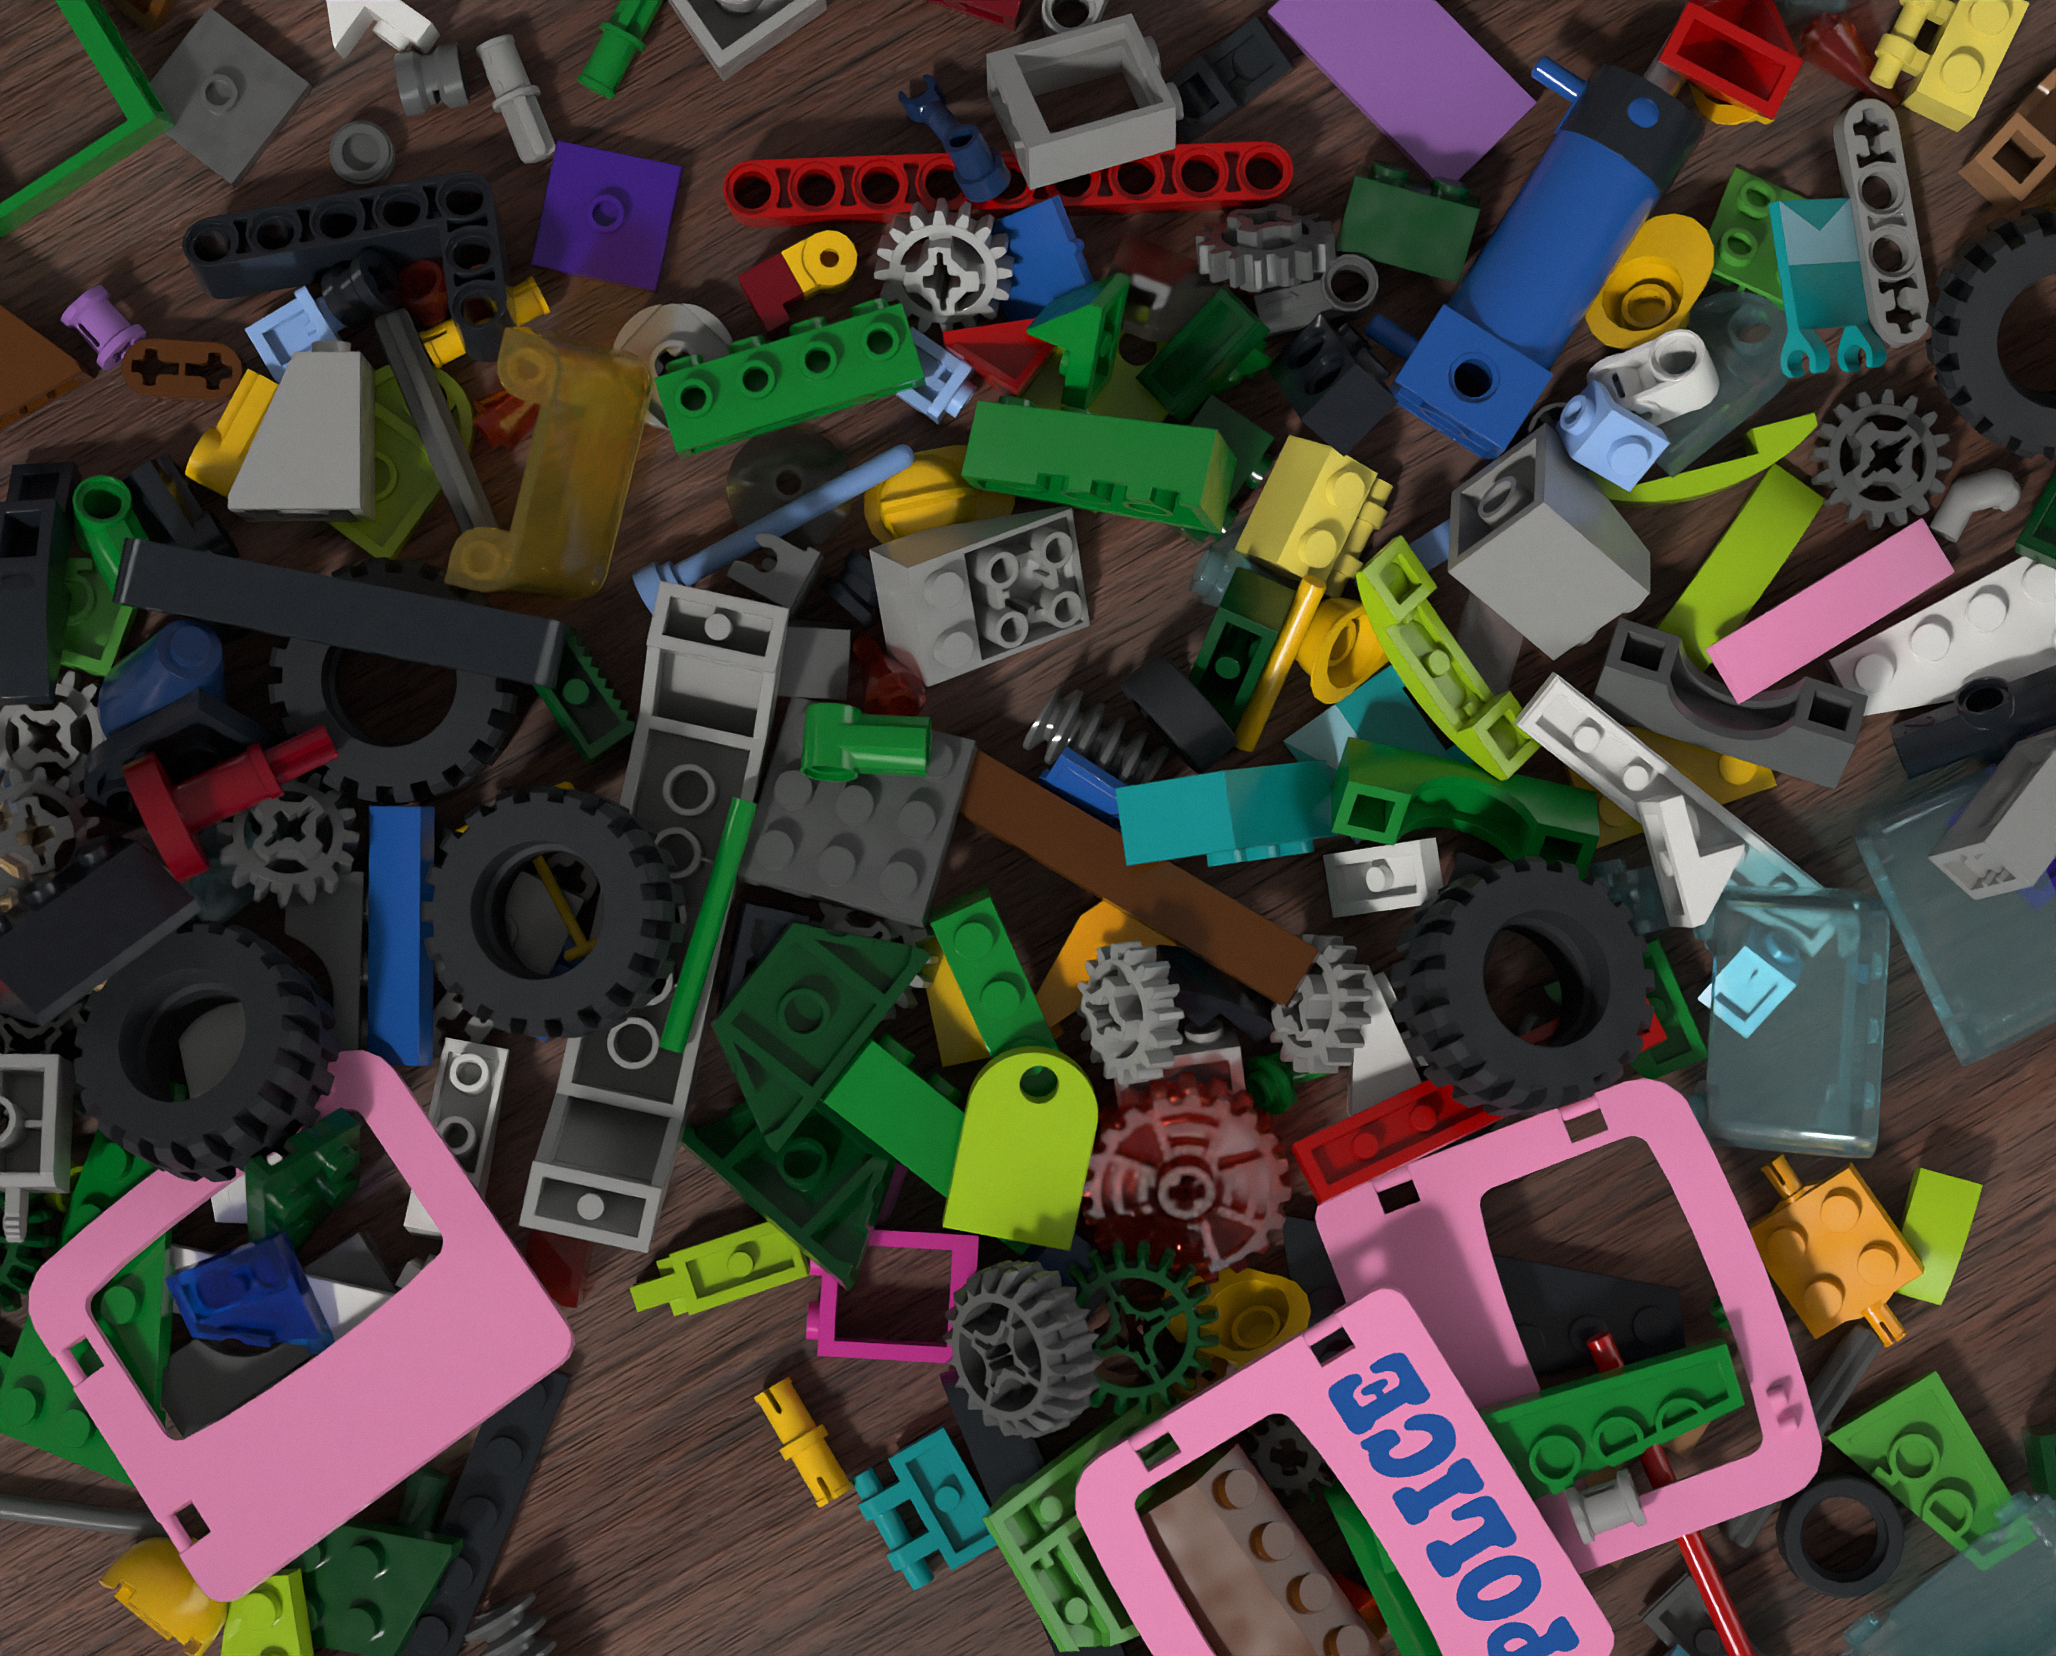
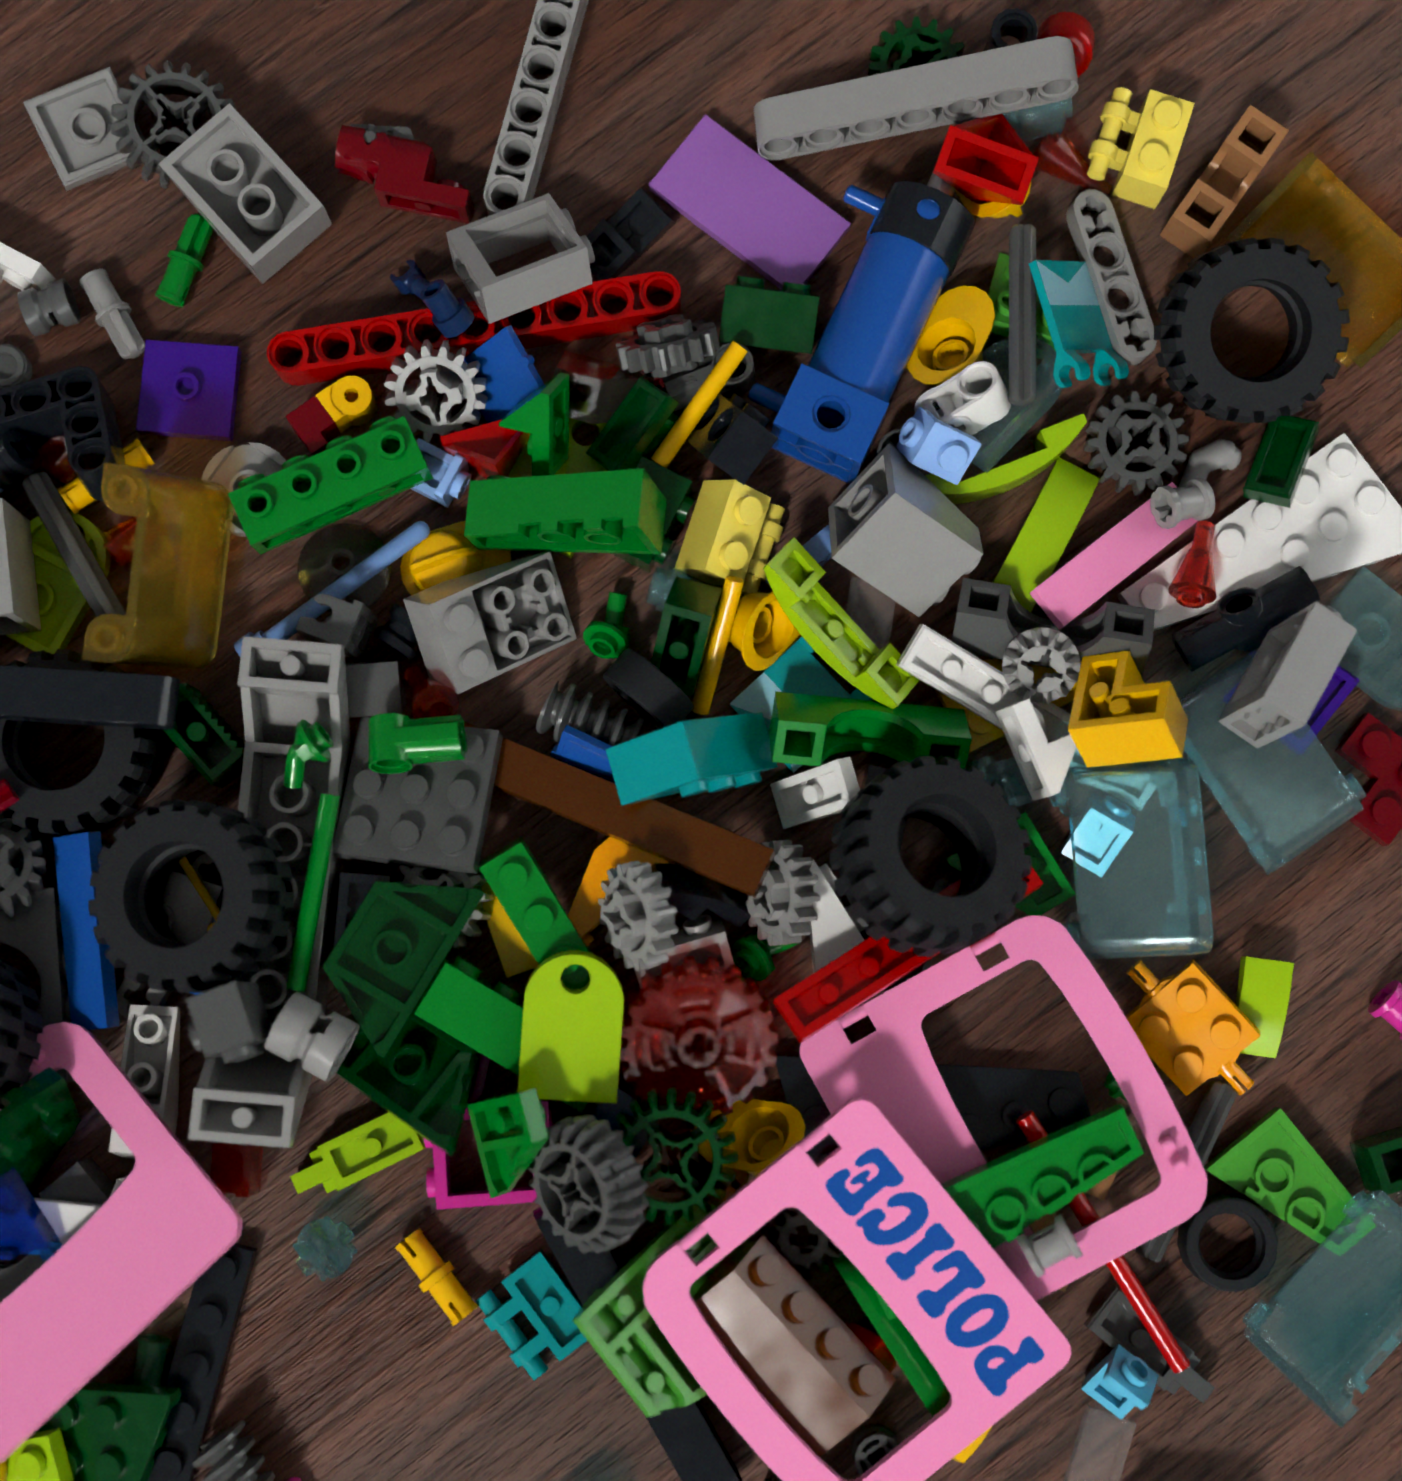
camera: 10 degrees left, 5 degrees down
(588, 1083) = (229, 1022): none -> dark grey brick
(664, 1386) = (325, 1248): none -> clear light blue gear
(689, 1114) = (311, 1036): none -> light grey wheel
(728, 731) = (310, 743): none -> green plate
(925, 1274) = (508, 1136): none -> green wing
(1135, 624) = (609, 633): none -> green plate
(1297, 334) = (699, 404): none -> yellow bar
(1696, 724) = (1031, 646): none -> light grey gear
(1750, 270) = (1022, 316): none -> dark grey axle
(1801, 835) = (1121, 717): none -> yellow brick
(1929, 553) = (1181, 503): none -> light grey bush
(1931, 656) = (1195, 578): none -> clear red cone

